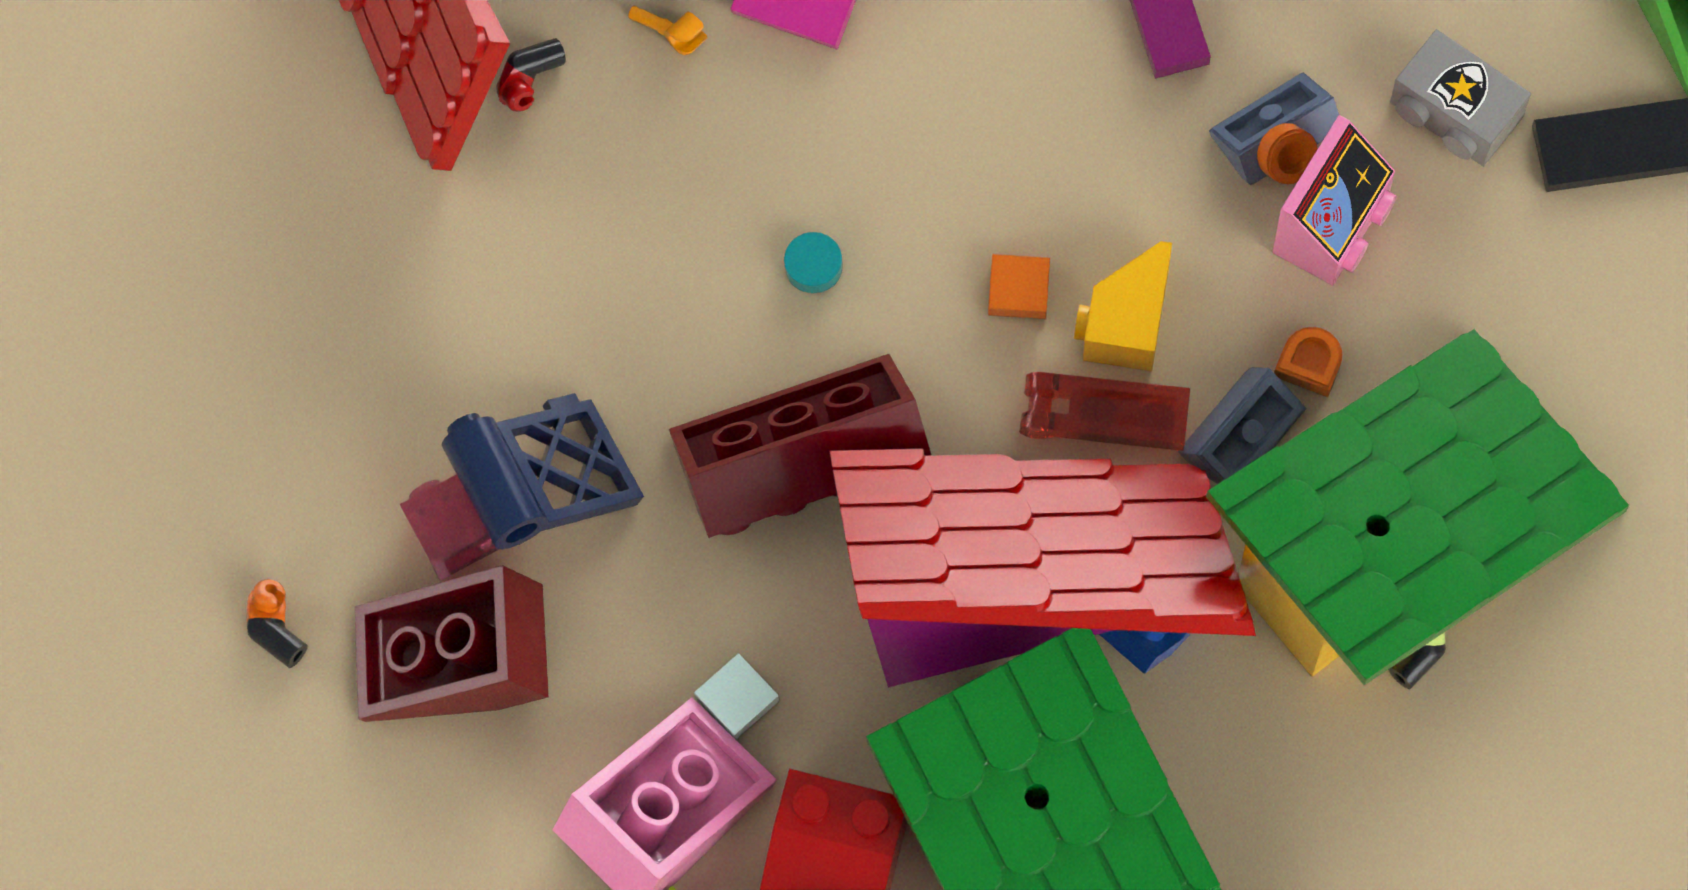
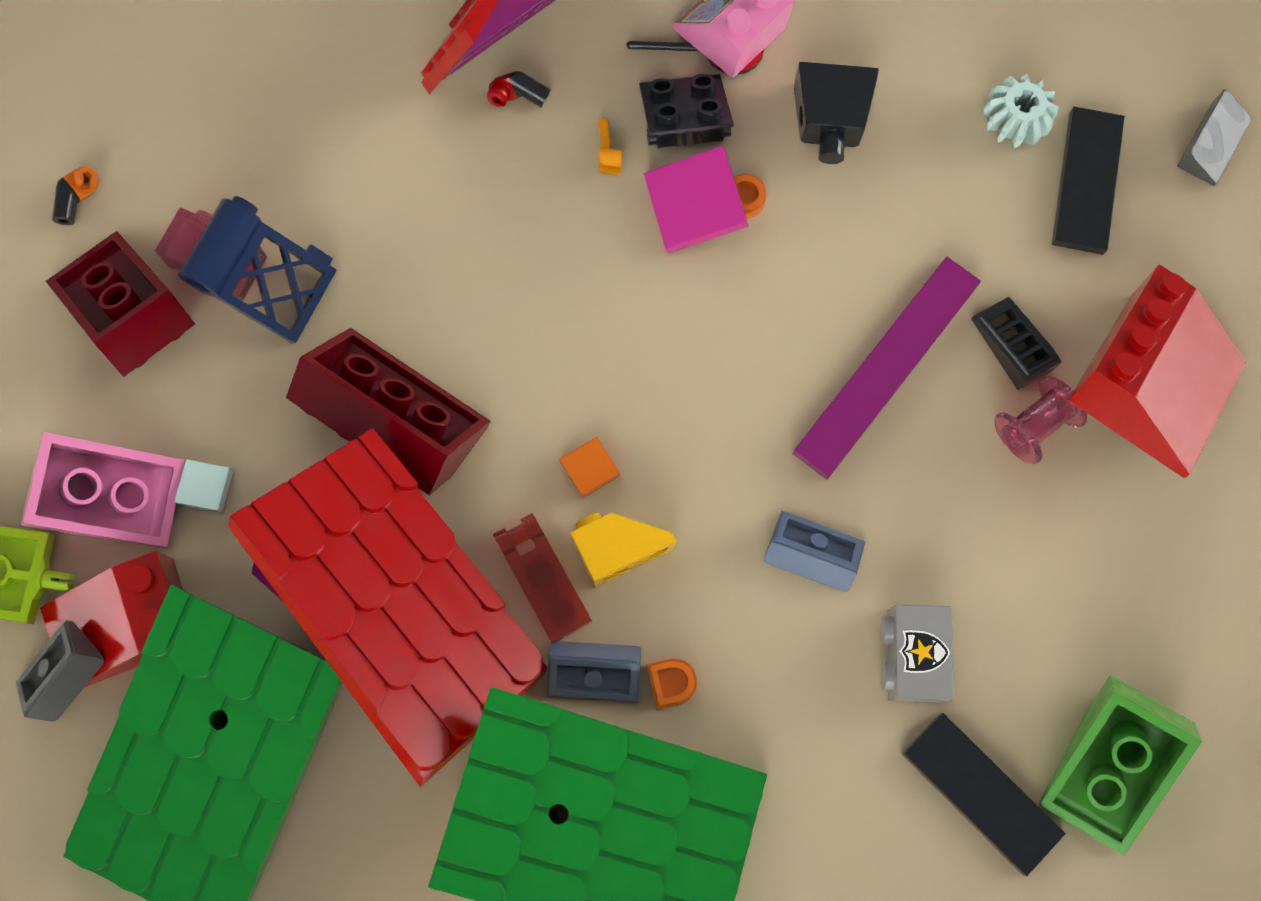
camera: 45 degrees right, 5 degrees up
(813, 262) = (516, 335): teal tile -> none
(1286, 152) = (797, 570): orange tile -> none
(1335, 204) = (782, 626): slope -> none

